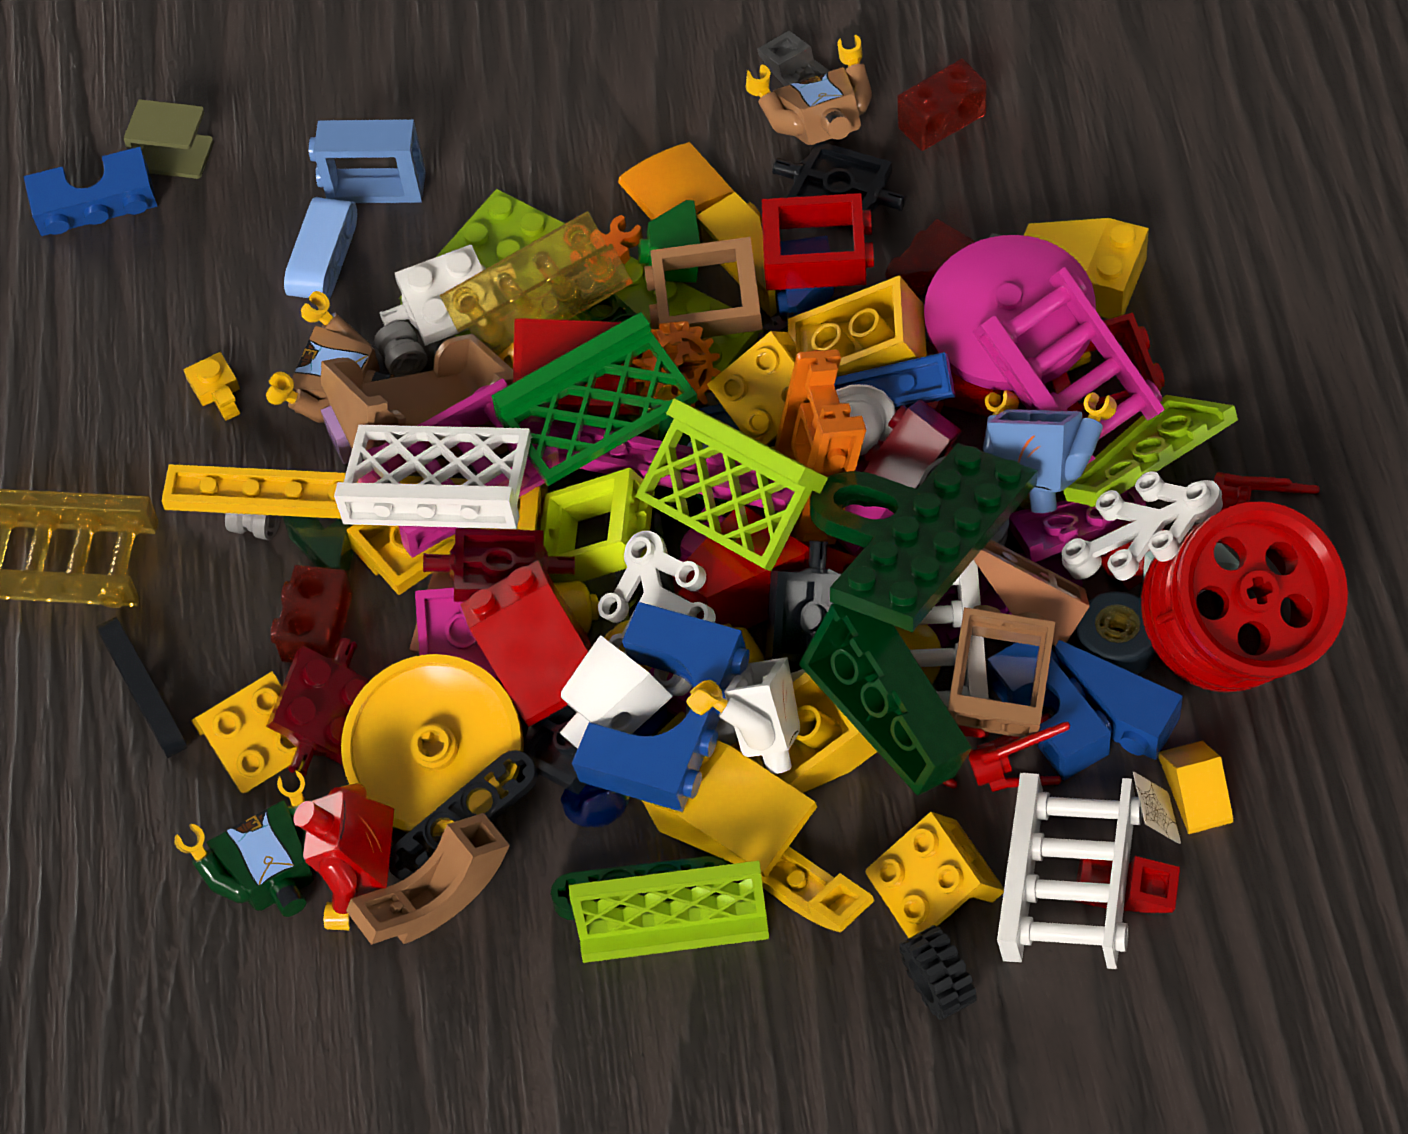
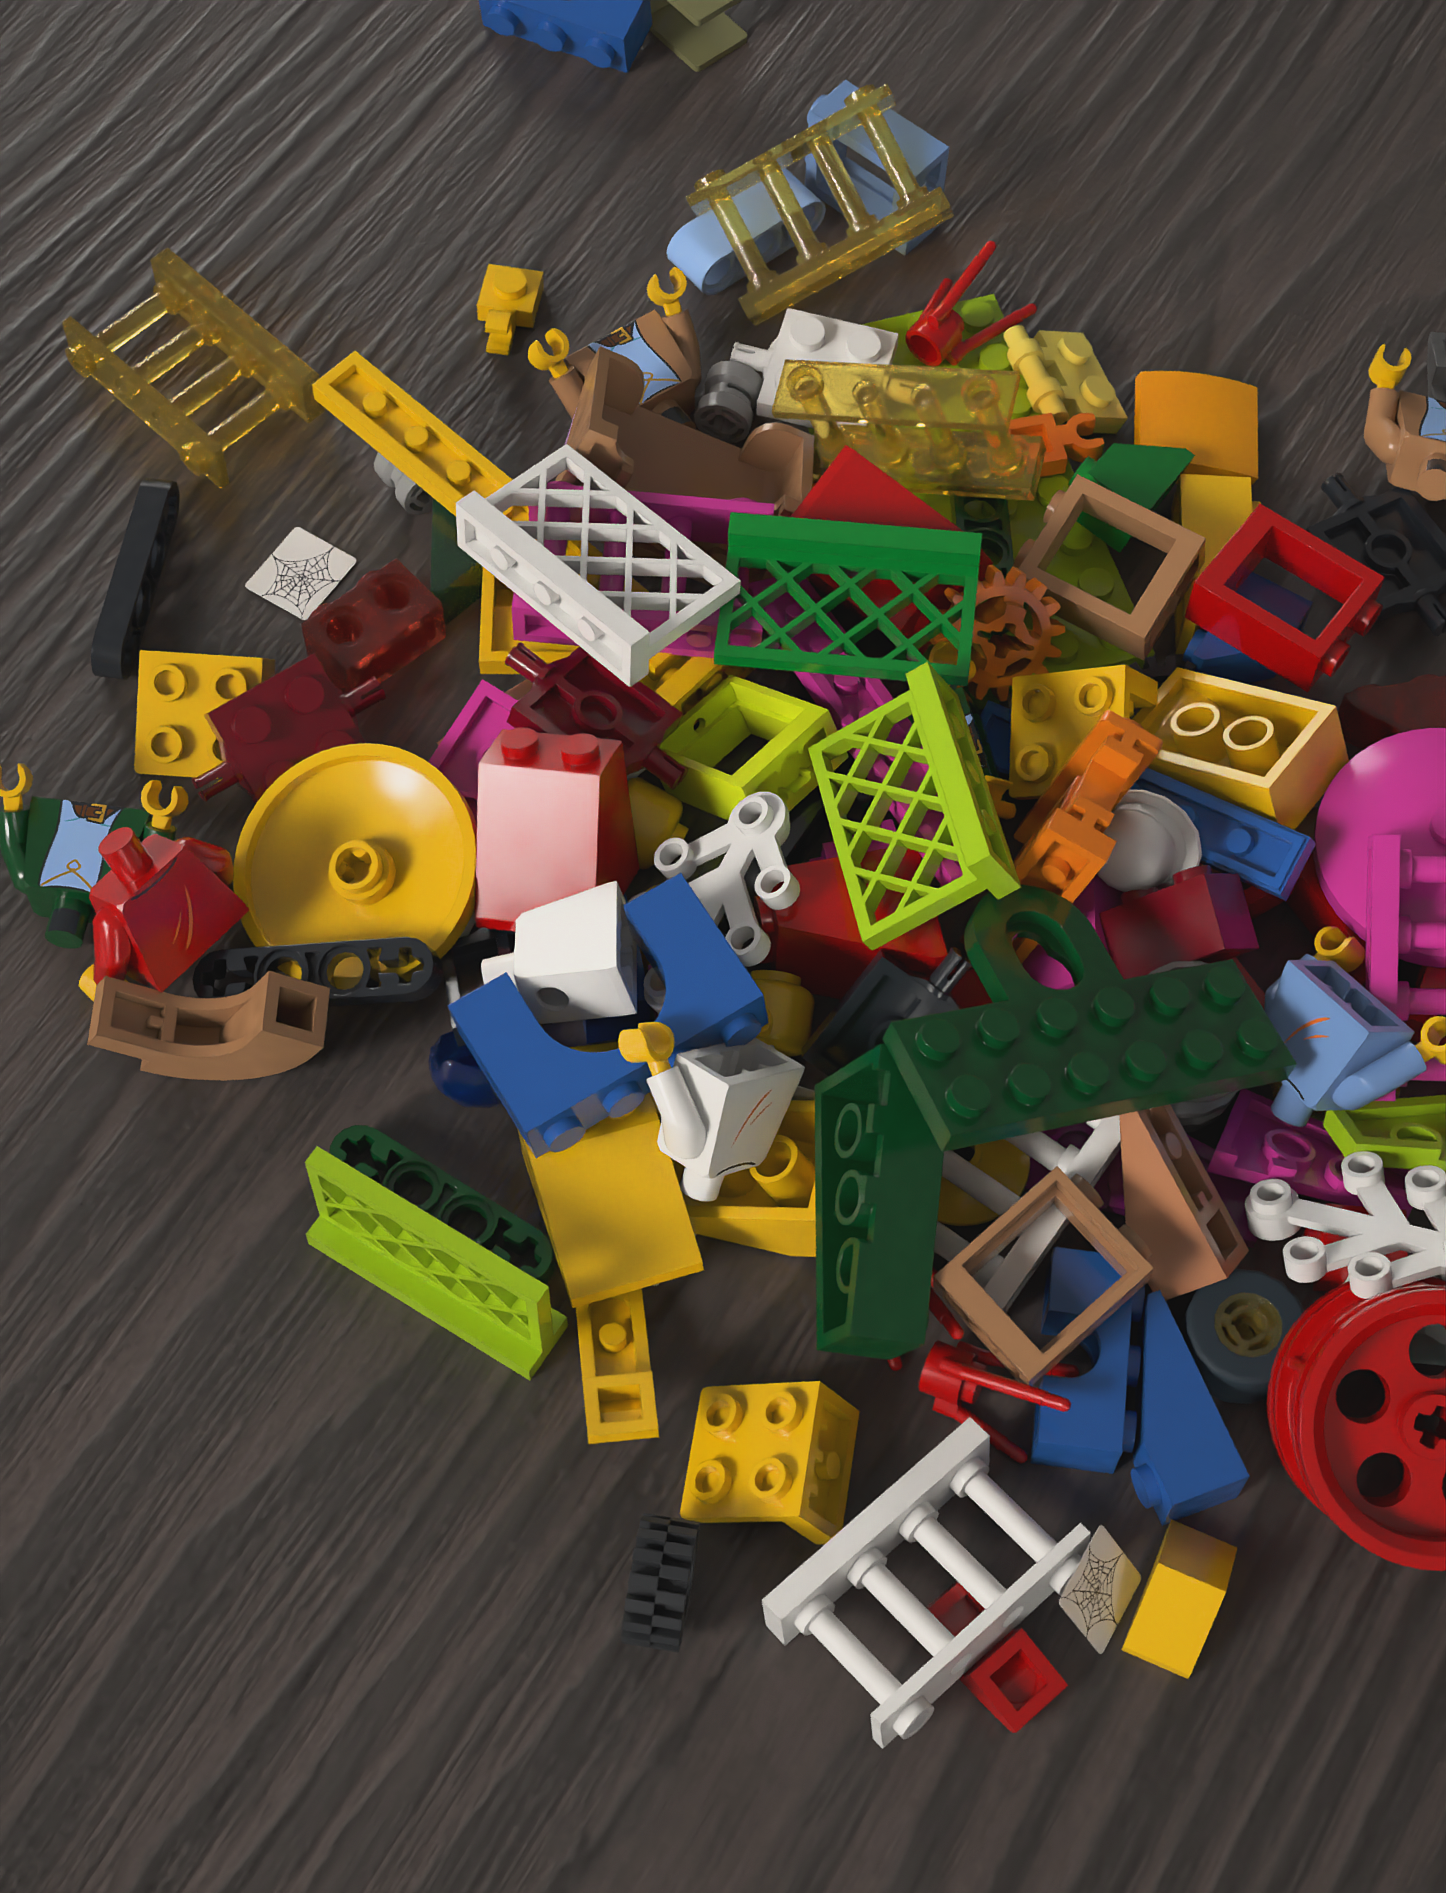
camera: 30 degrees right, 5 degrees up
(233, 618) = (300, 573): none -> white sticker
(404, 200) = (867, 235): none -> clear yellow fence
(491, 230) = (940, 328): none -> red plant
(572, 198) = (1064, 377): none -> light yellow plate

